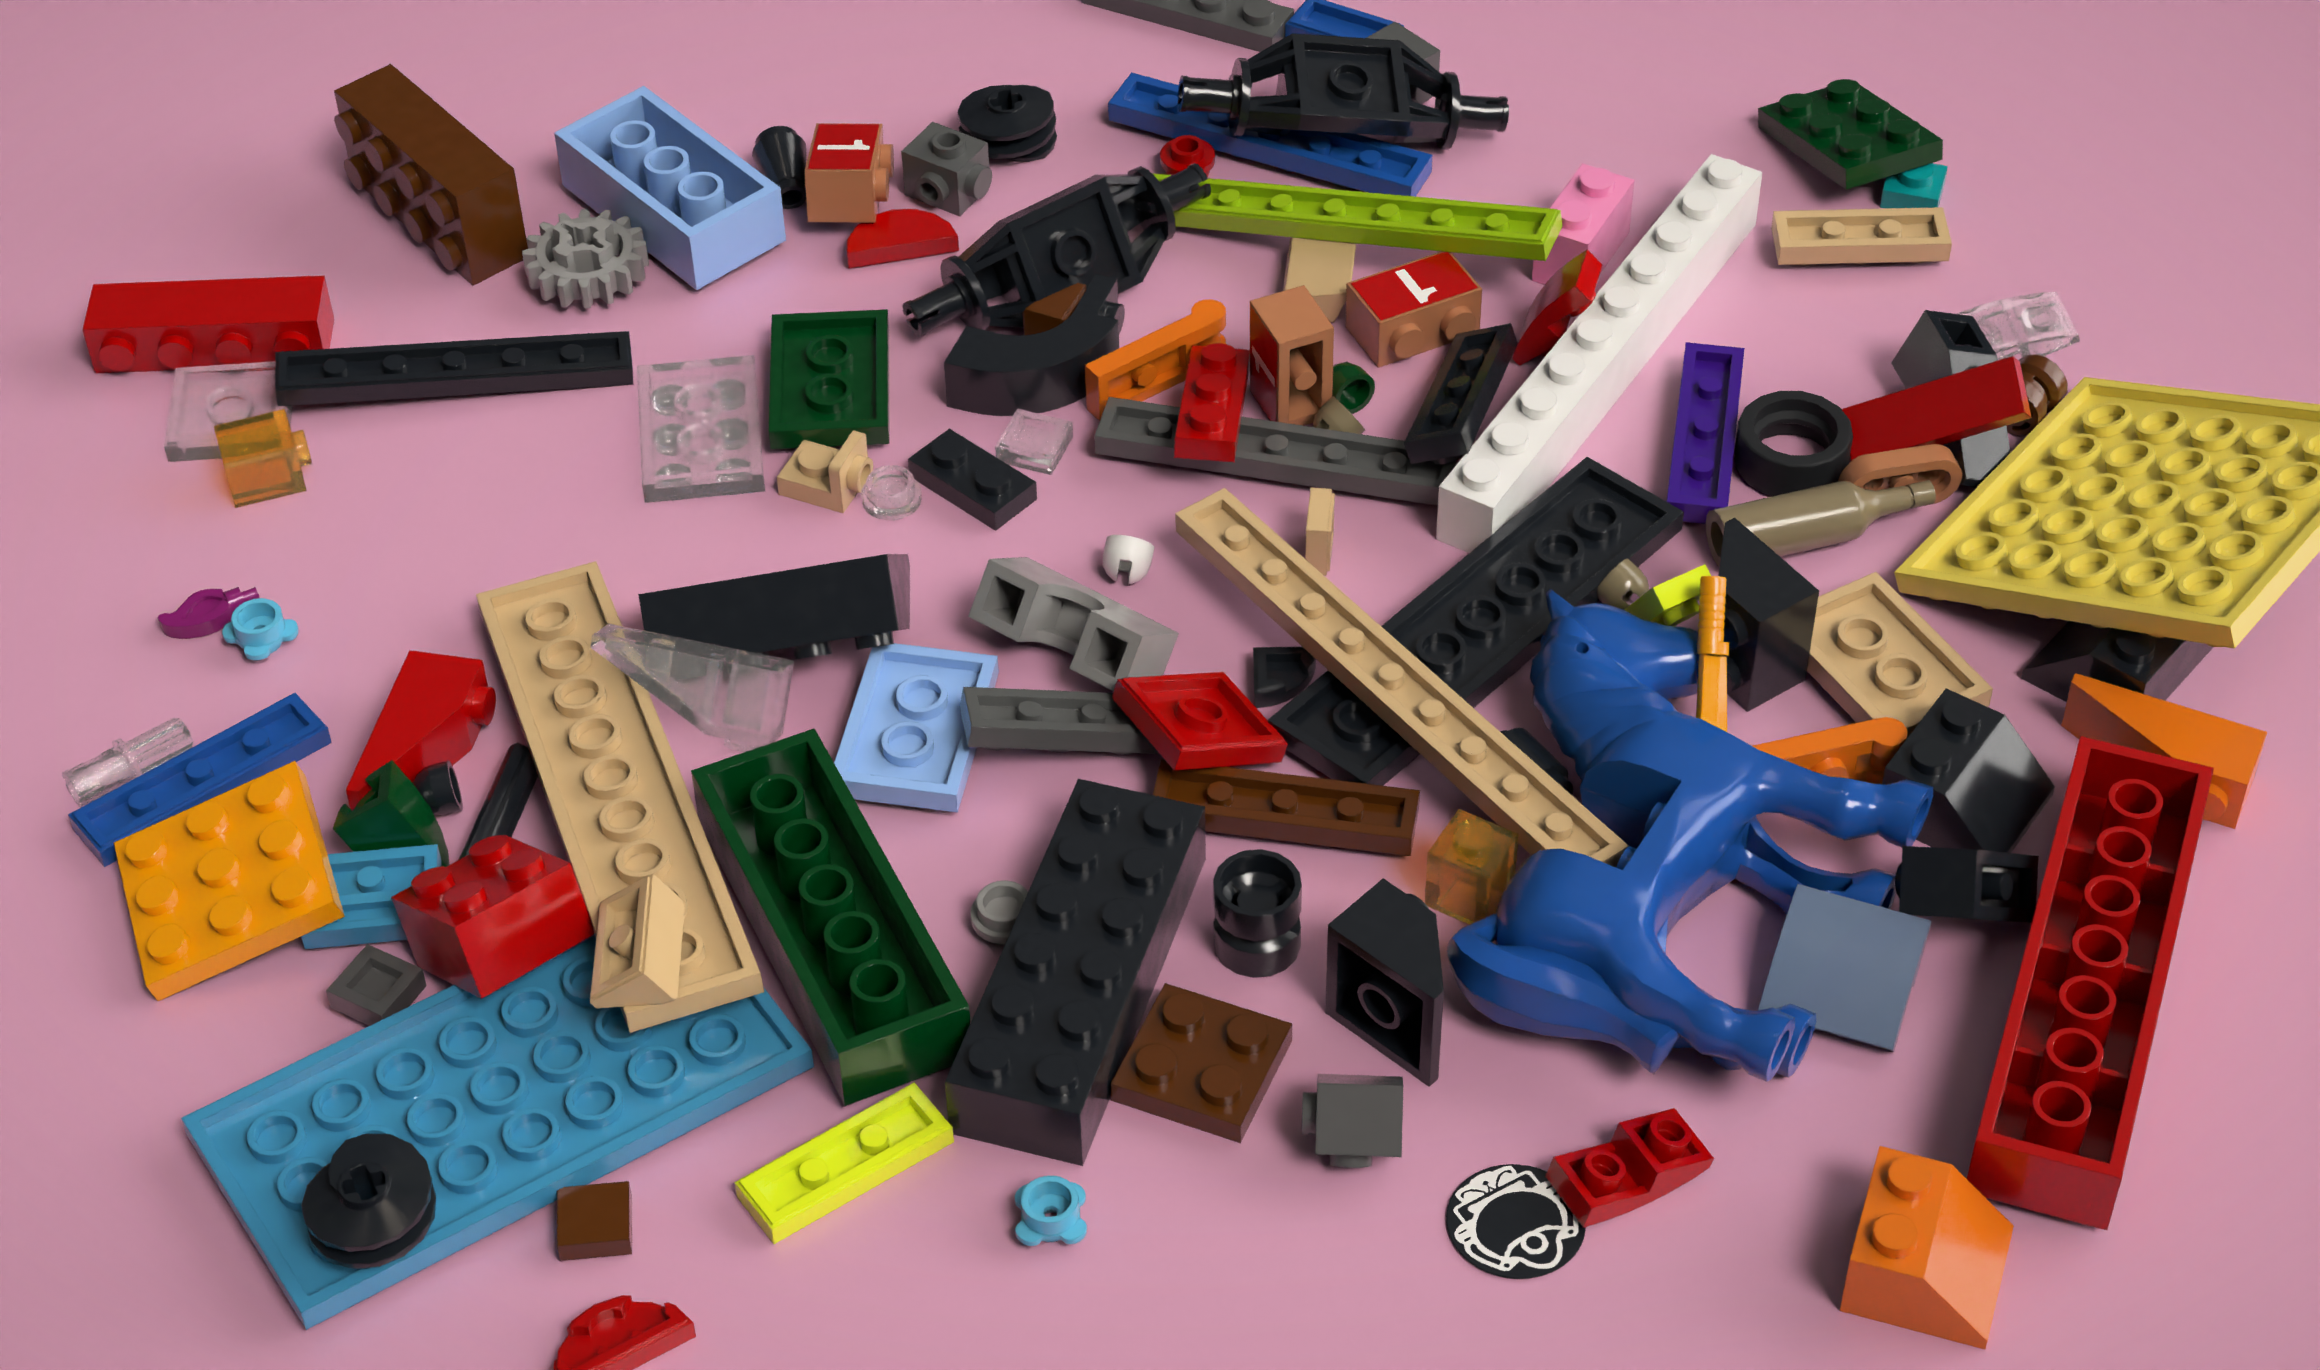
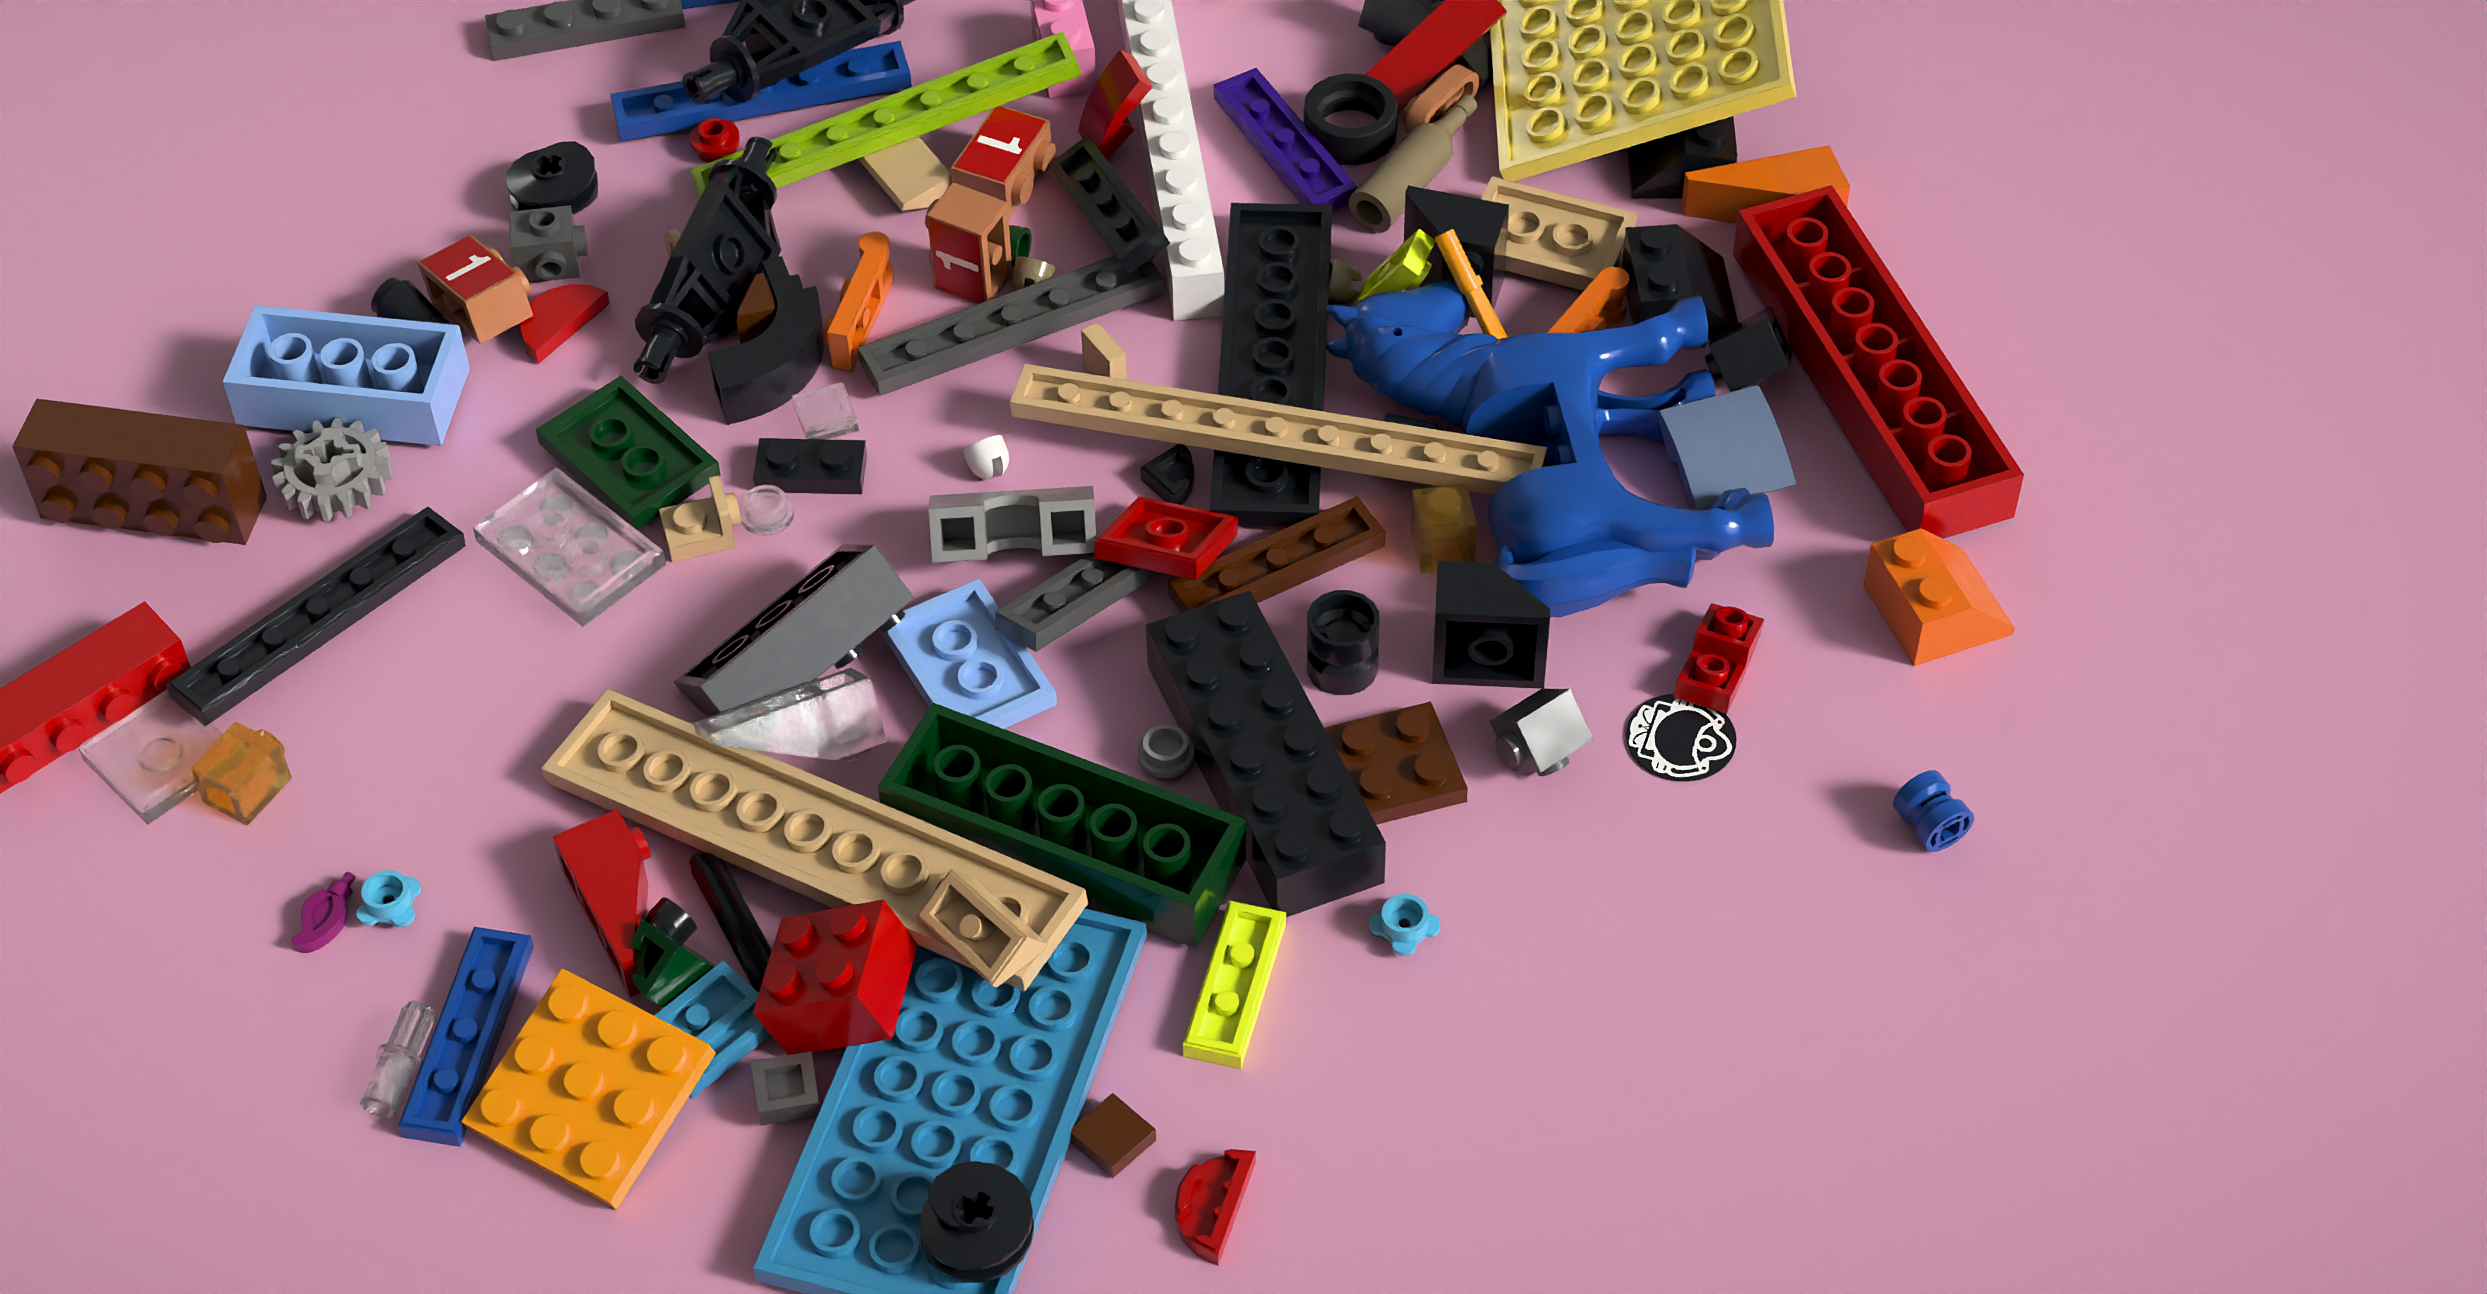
camera: 40 degrees left, 5 degrees up
(1212, 403) = (943, 309): red plate -> none

